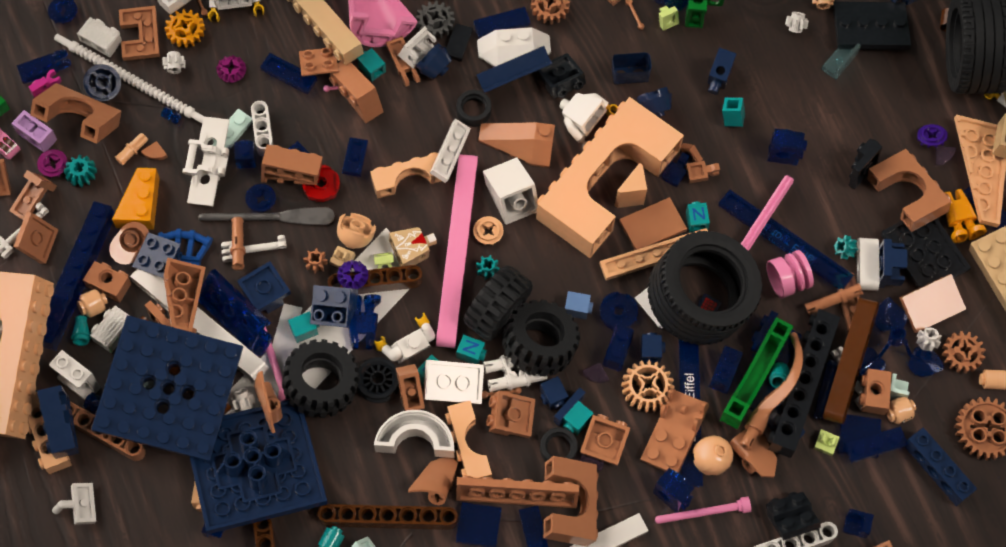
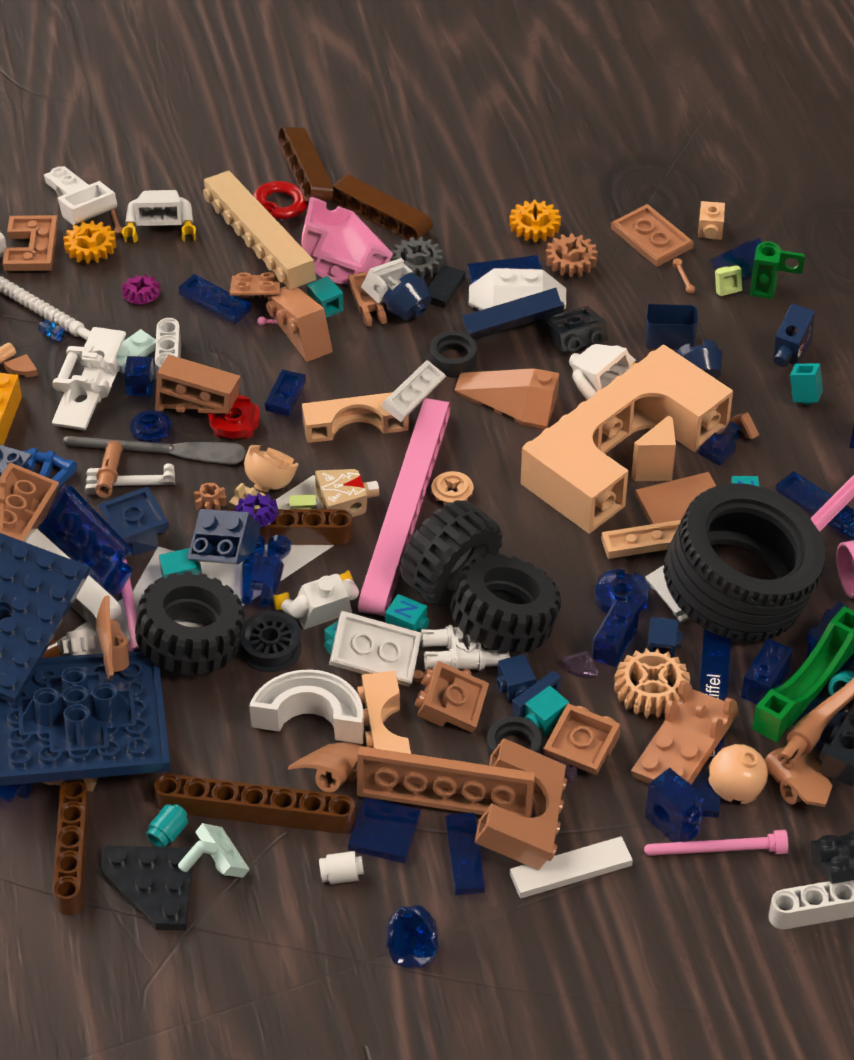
camera: 10 degrees right, 20 degrees down
(173, 62) = (67, 274): white gear -> none
(410, 387) = (313, 644): nougat brick -> none
(511, 190) = (490, 444): white slope -> none
(578, 305) = (567, 578): medium blue brick -> none
(699, 171) = (754, 447): nougat plate -> none

